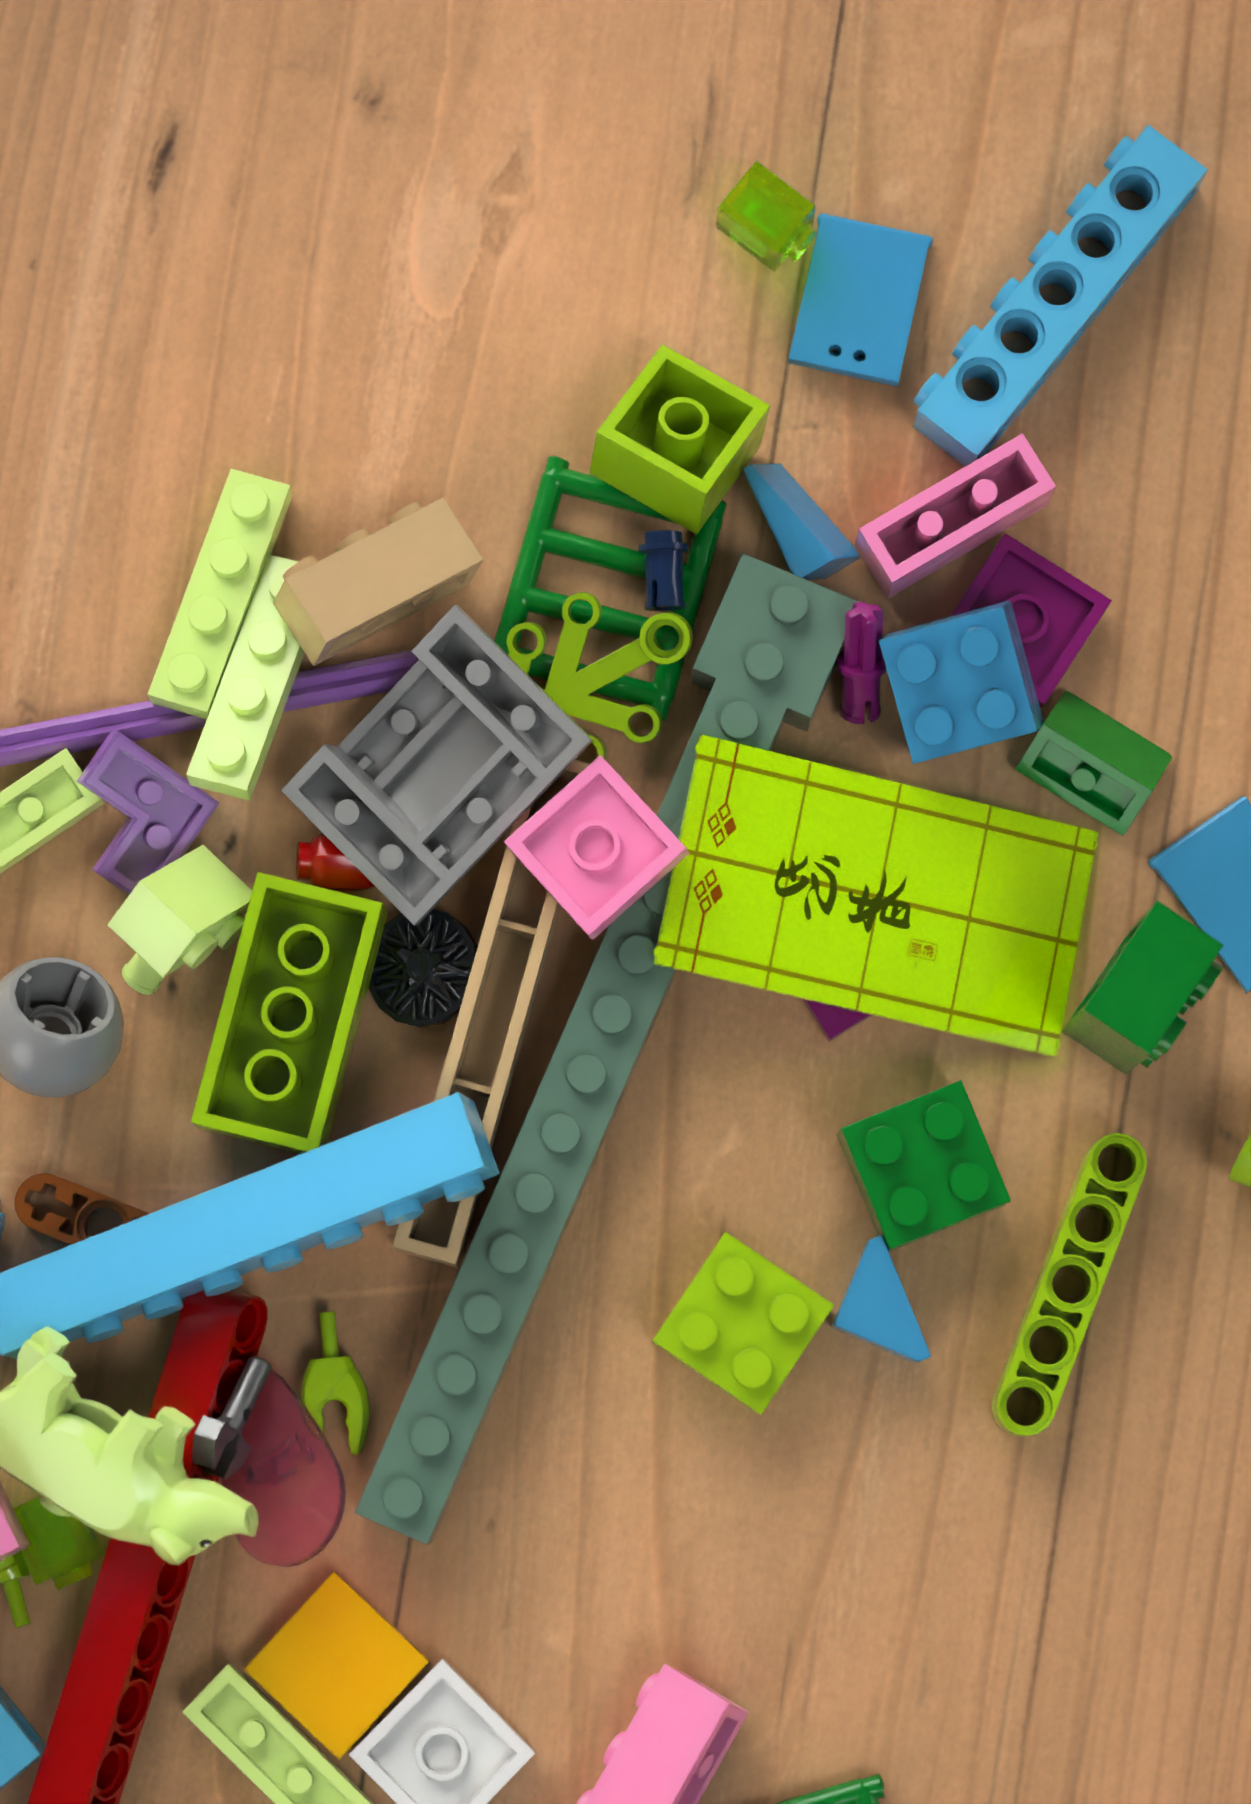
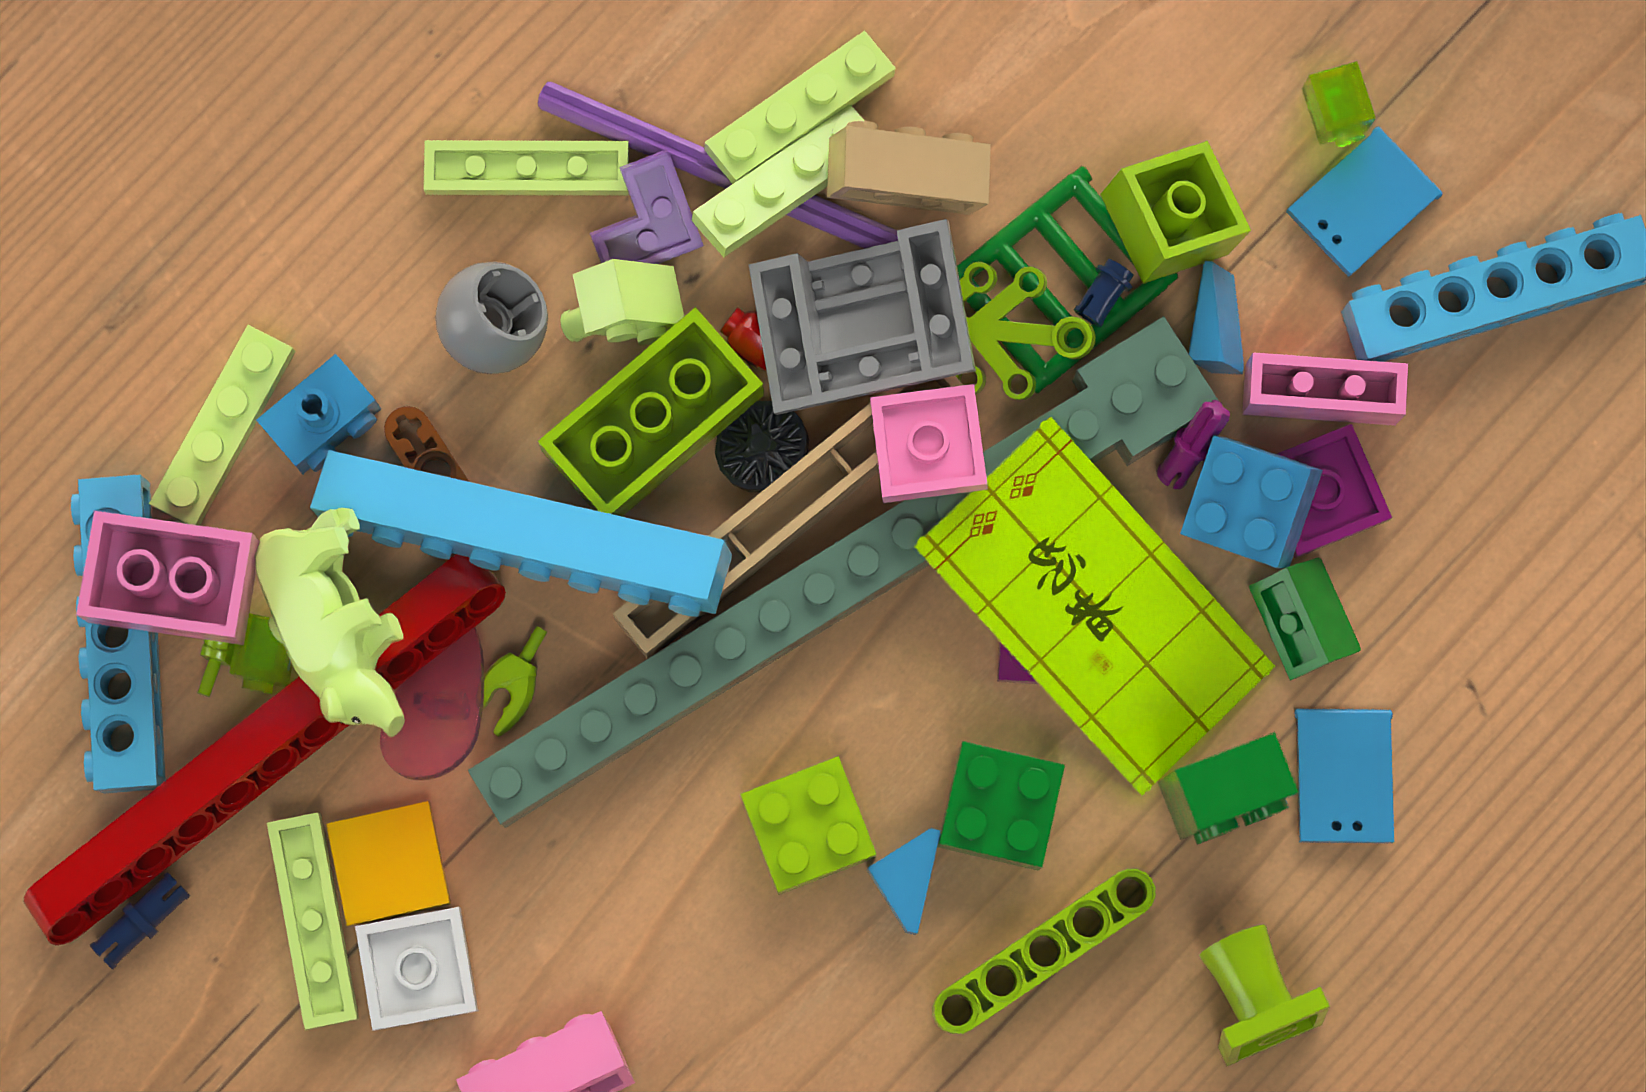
camera: 30 degrees right, 0 degrees up
(219, 1441) = (412, 663): flat silver bar -> none

